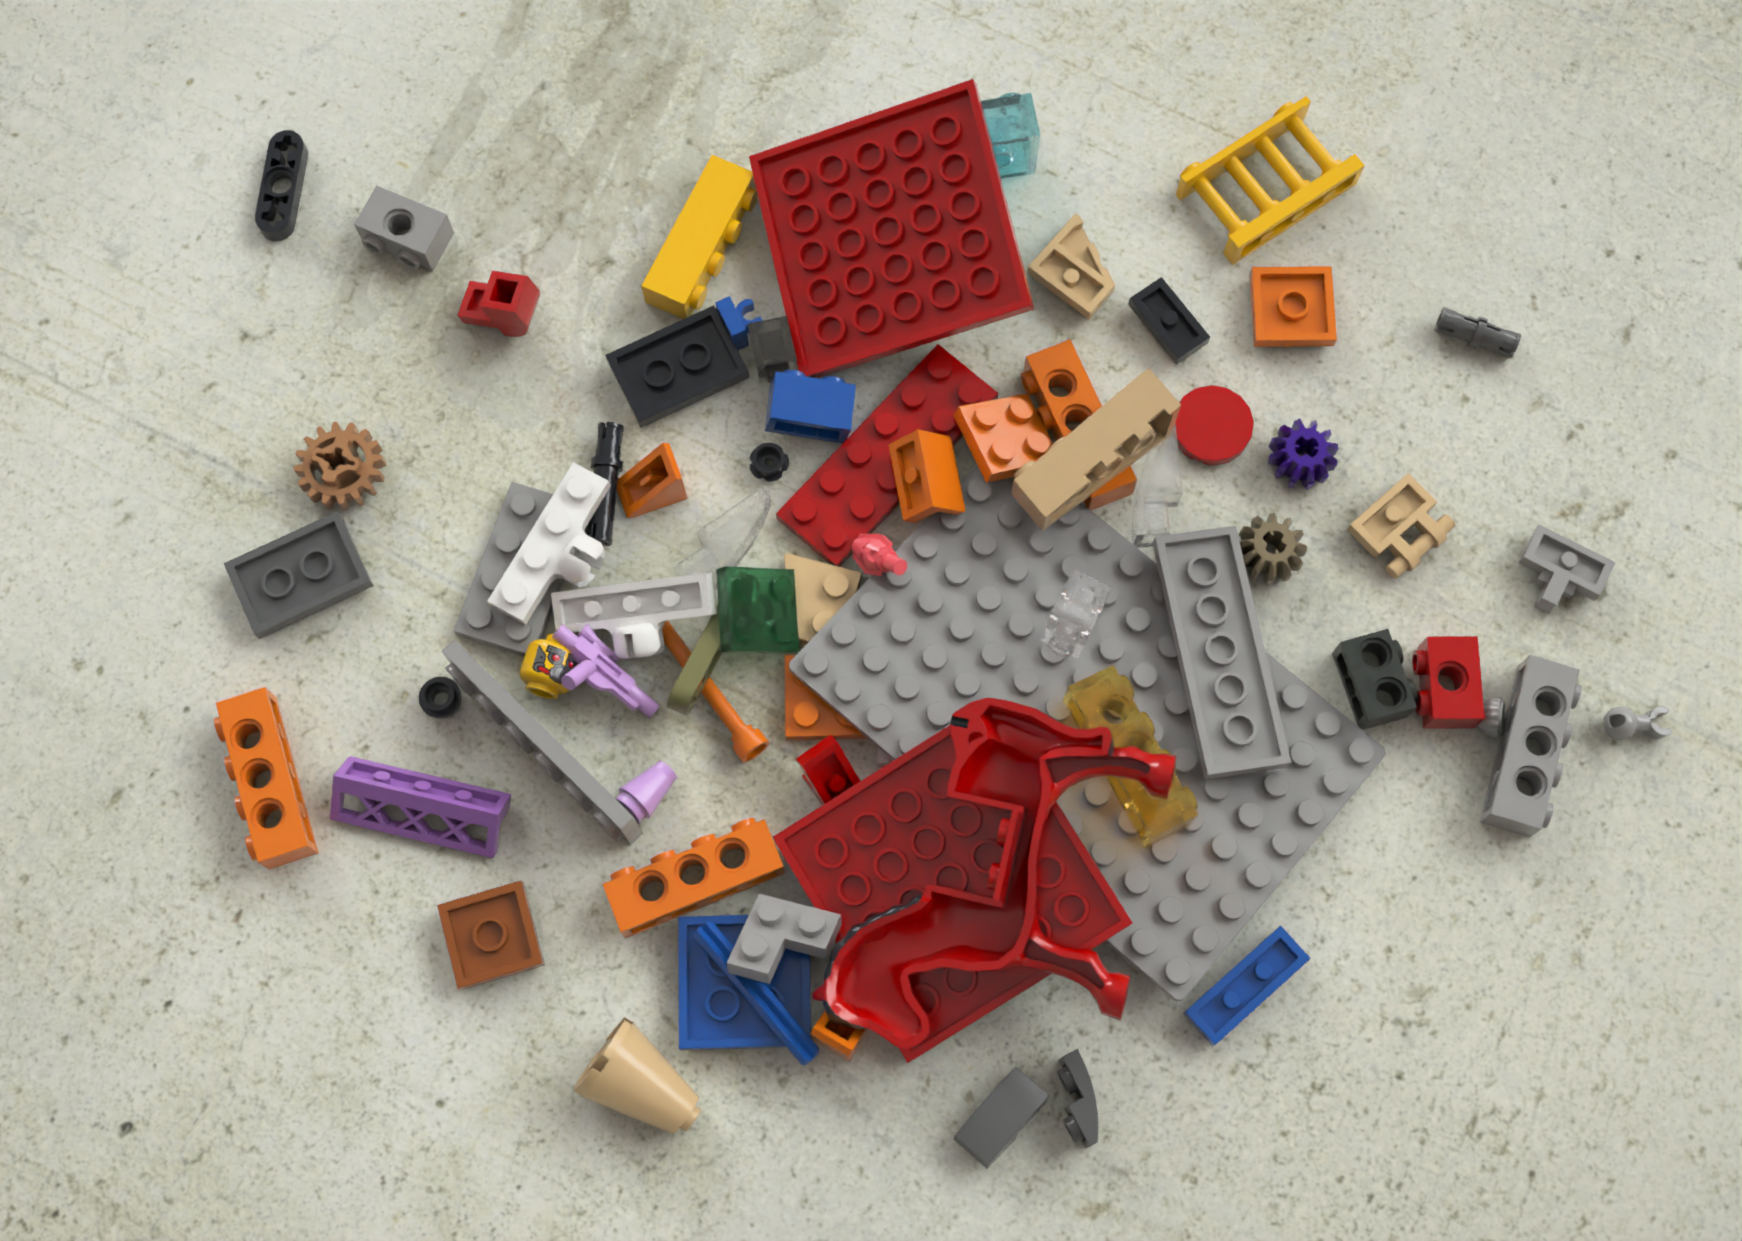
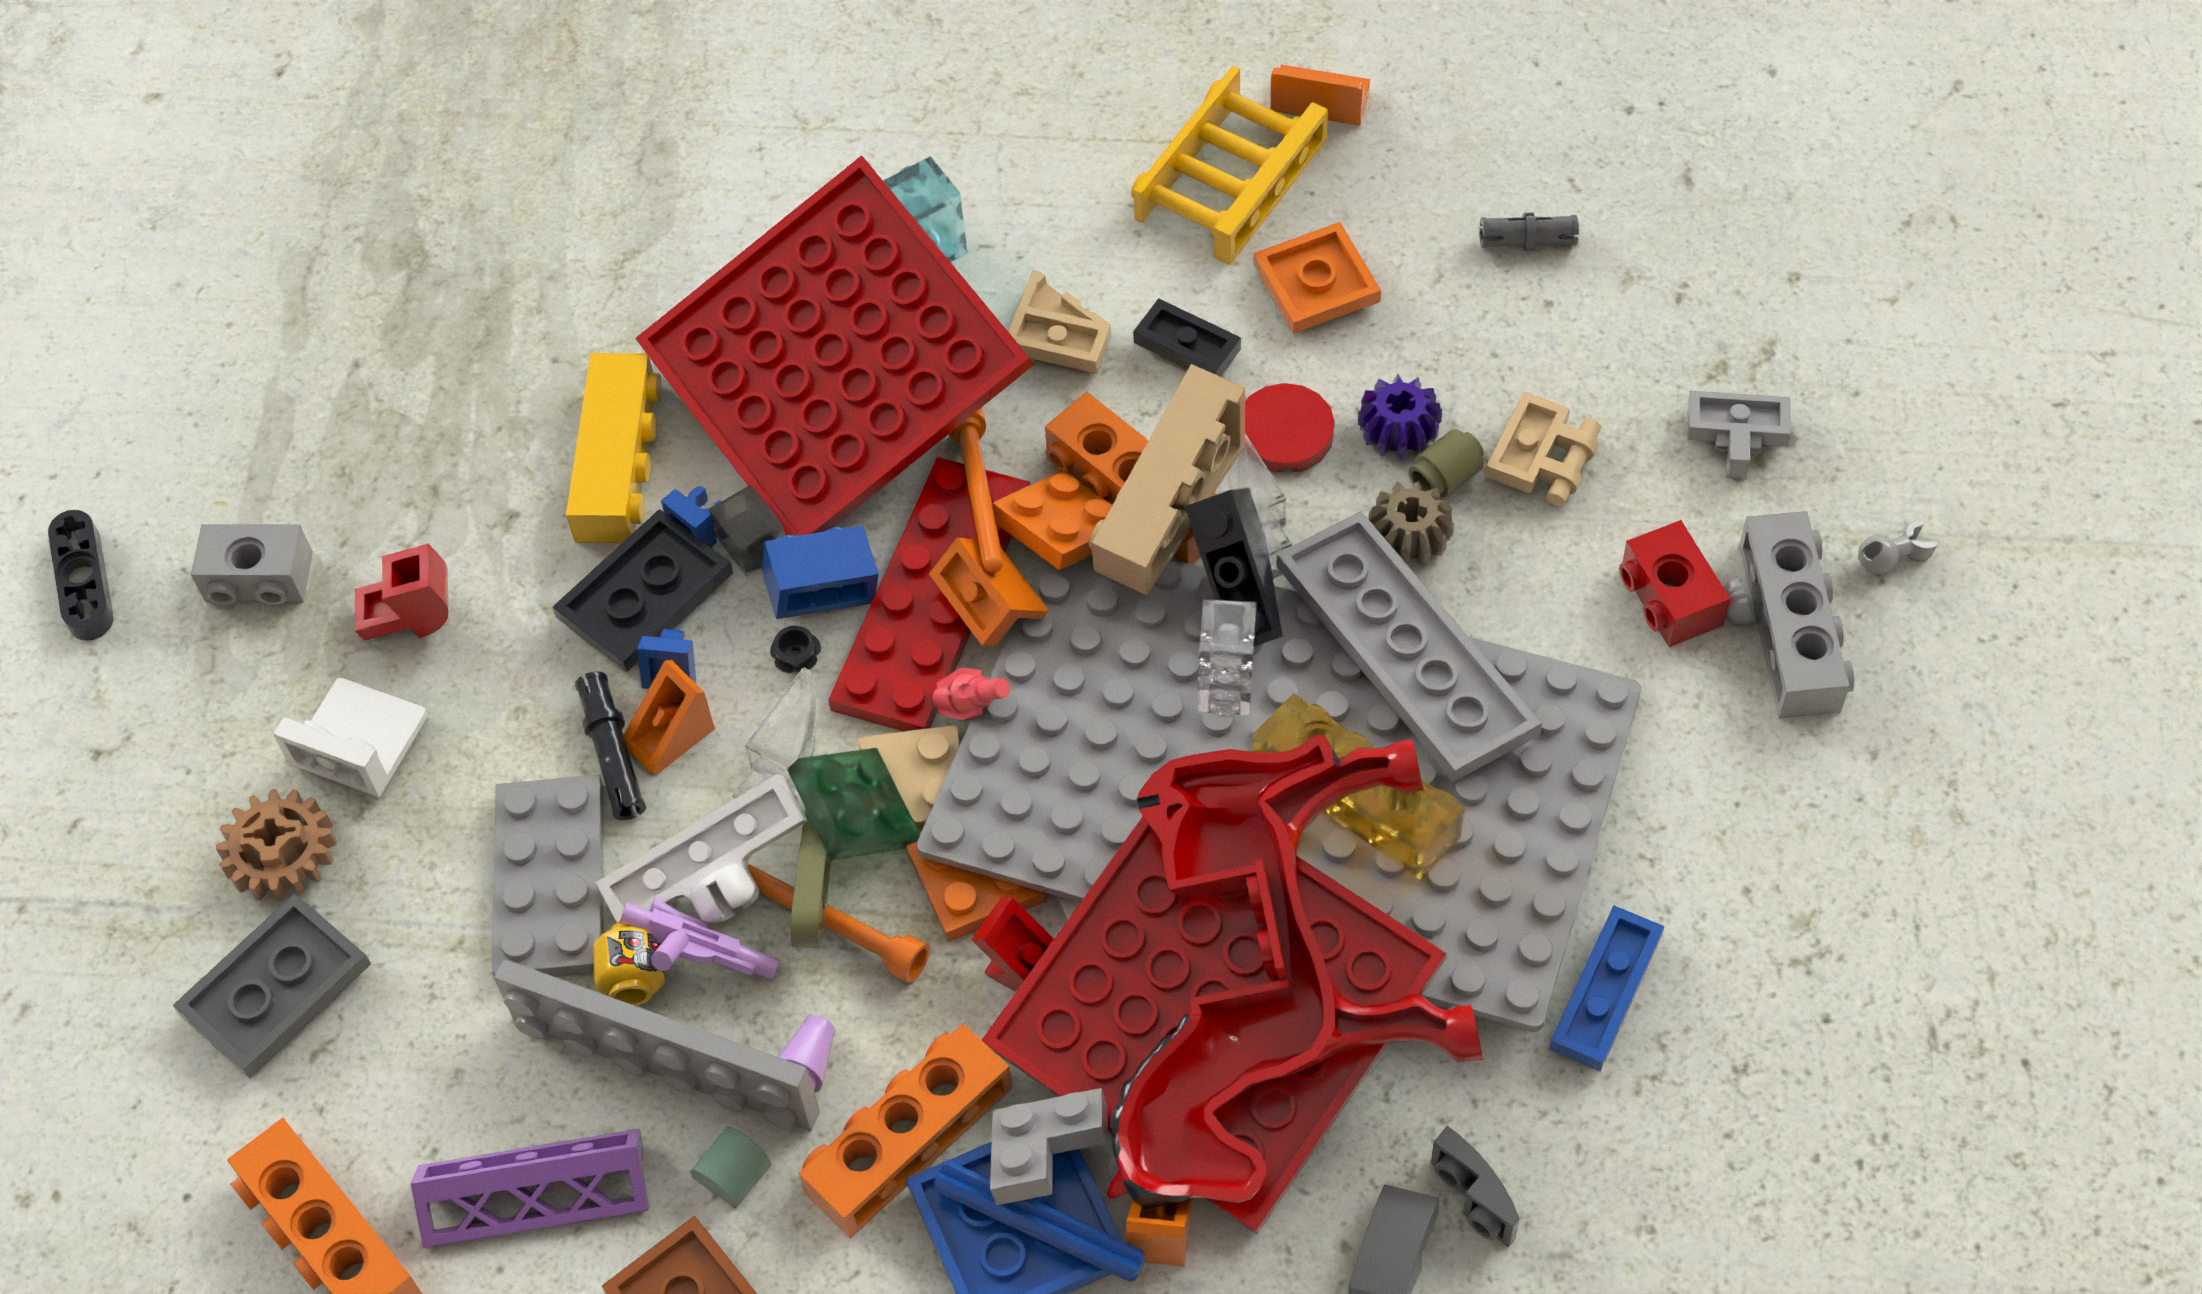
camera: 20 degrees left, 15 degrees down
(427, 400) = (353, 736): none -> white bracket
(431, 689) = (499, 1042): black plate -> none
(554, 546) = (580, 829): white plate -> none
(562, 851) = (731, 1166): none -> sand green brick
(672, 430) = (656, 650): none -> blue tile
(952, 396) = (968, 437): none -> orange piece
(1120, 533) = (1237, 556): none -> black slope
(1321, 509) = (1448, 462): none -> olive brick
(1363, 680) = (1581, 618): pearl dark grey brick -> none
(1372, 143) = (1298, 87): none -> orange panel

